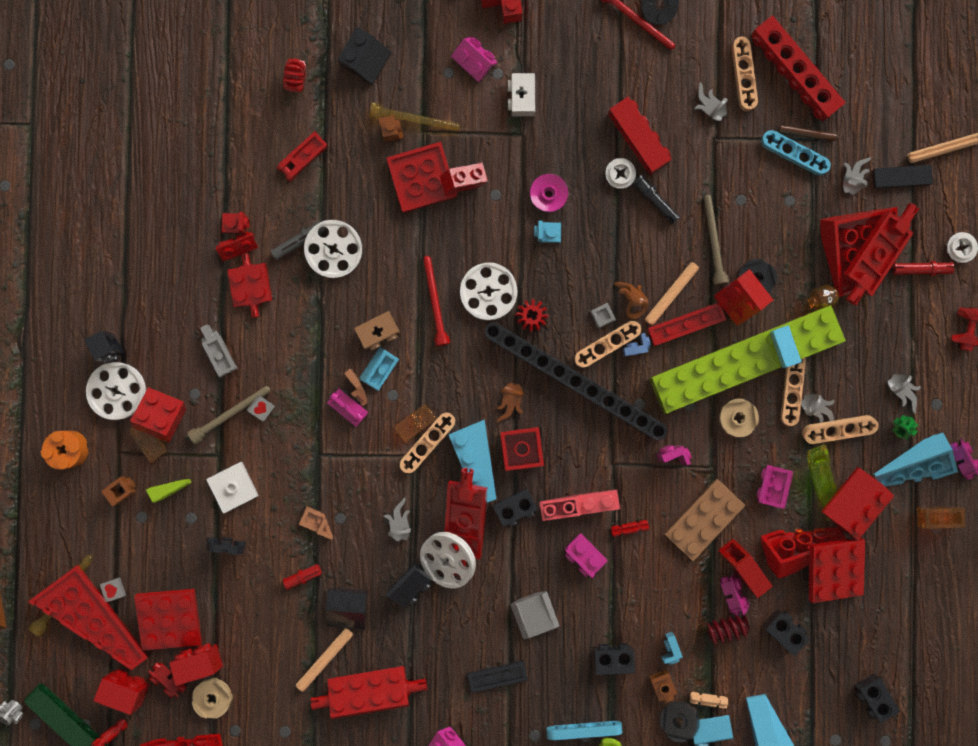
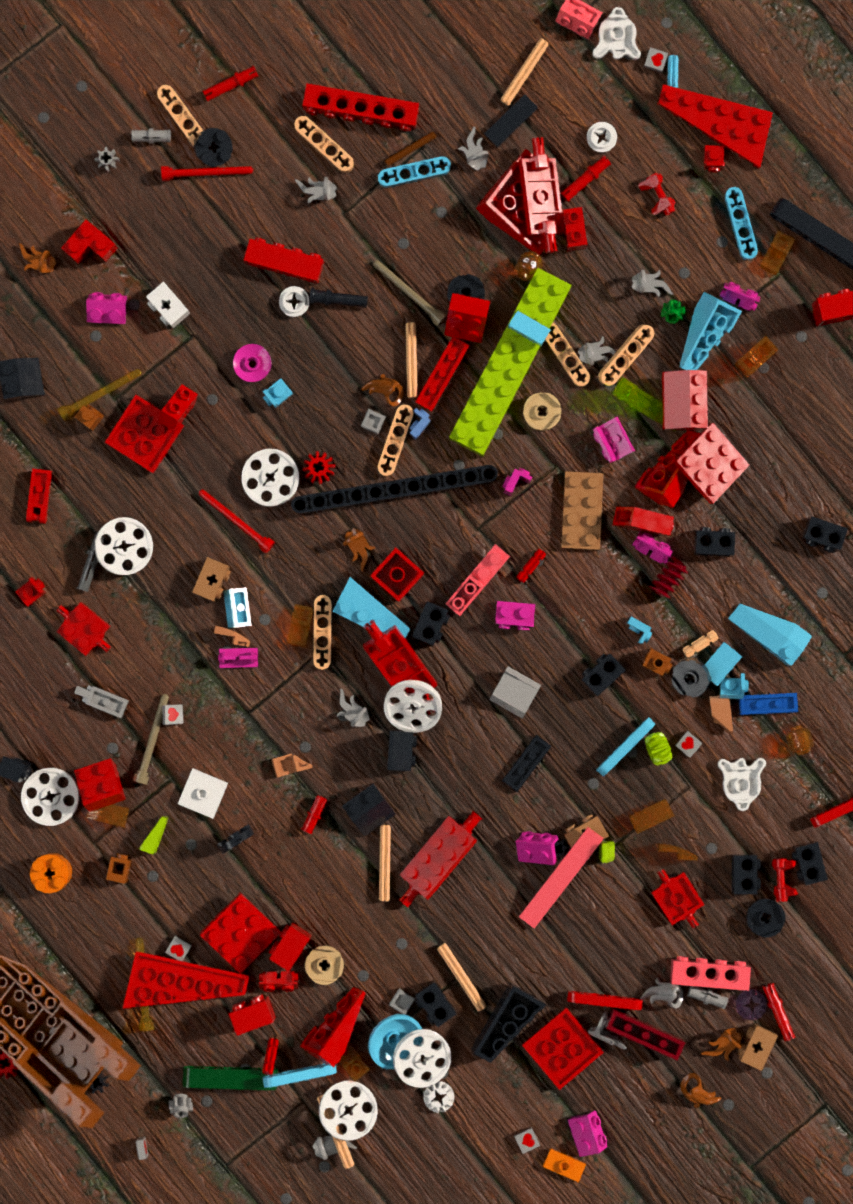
camera: 35 degrees left, 0 degrees up
(232, 248) = (45, 613): red hinge -> none
(883, 300) = (574, 229): none -> red brick

